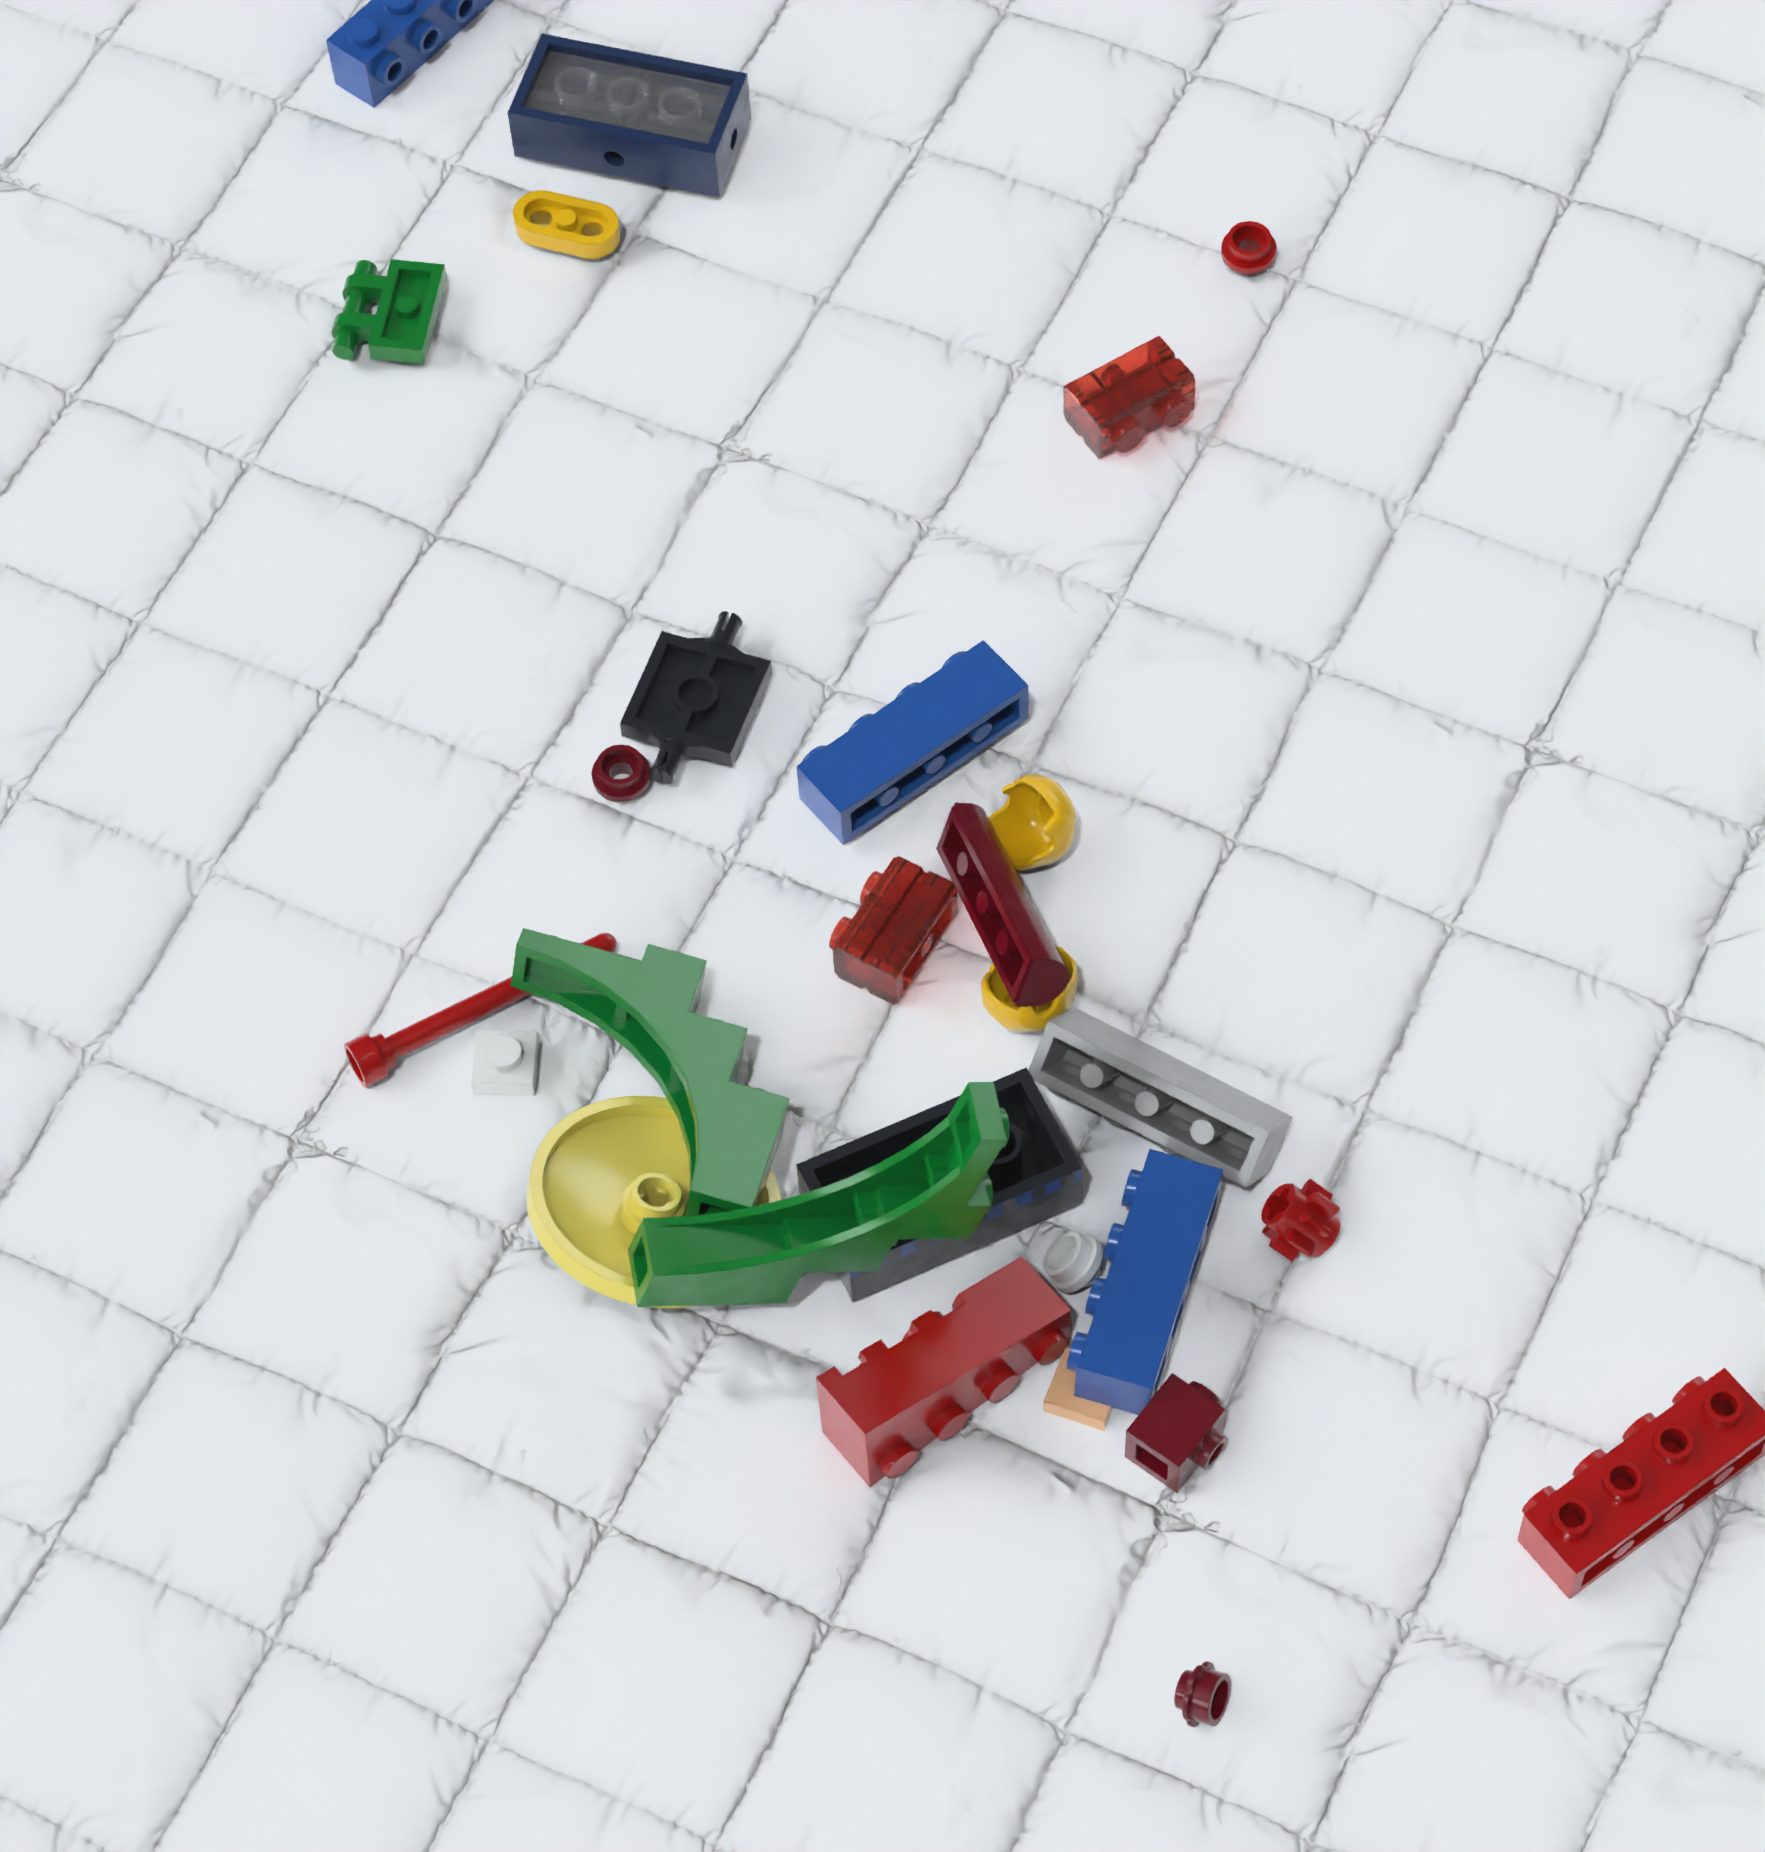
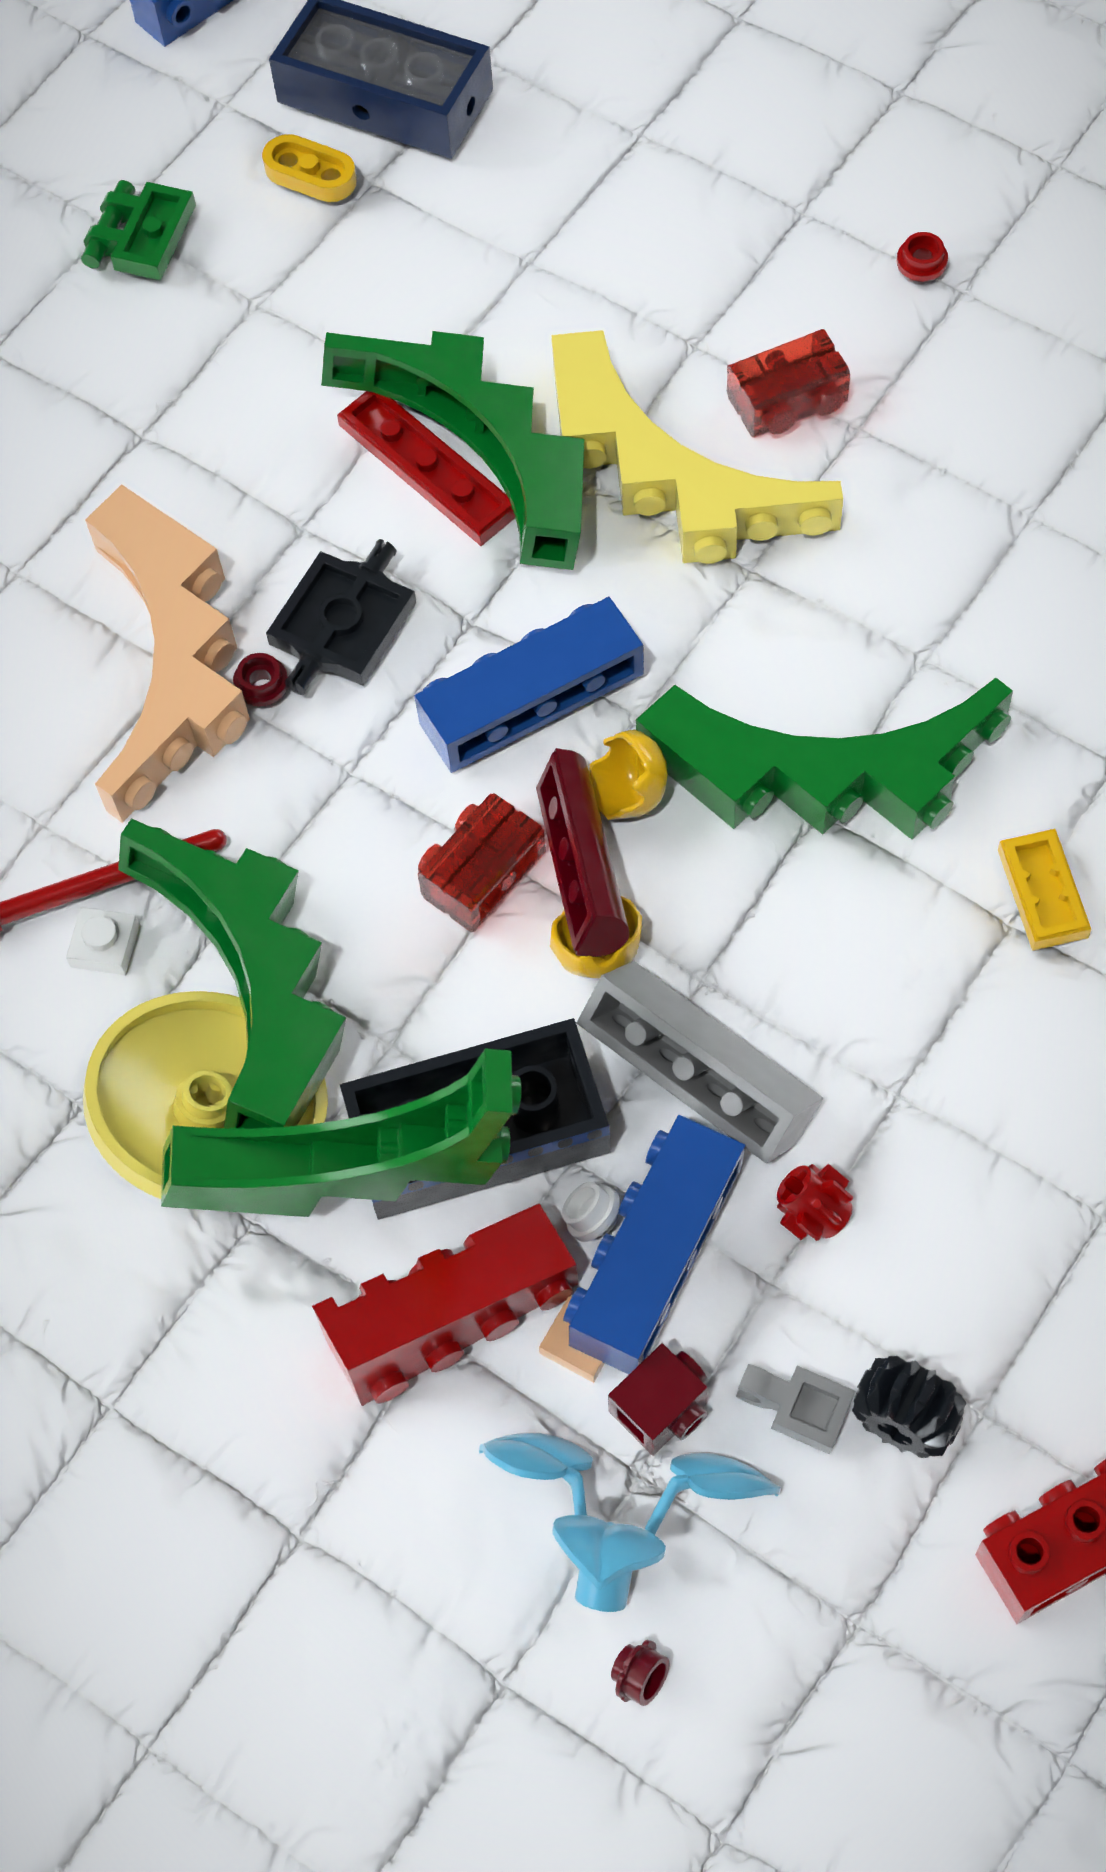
camera: 10 degrees right, 5 degrees up
(509, 681) = (192, 641): none -> light nougat arch
(756, 527) = (428, 465): none -> red tile
(764, 437) = (495, 419): none -> green arch
(1006, 508) = (660, 475): none -> light yellow arch
(1153, 1590) = (606, 1550): none -> medium azure plant
(1314, 786) = (824, 779): none -> green arch
(1326, 1419) = (806, 1407): none -> light grey plate
(1429, 1401) = (909, 1406): none -> black gear
(1482, 883) = (1044, 889): none -> yellow plate

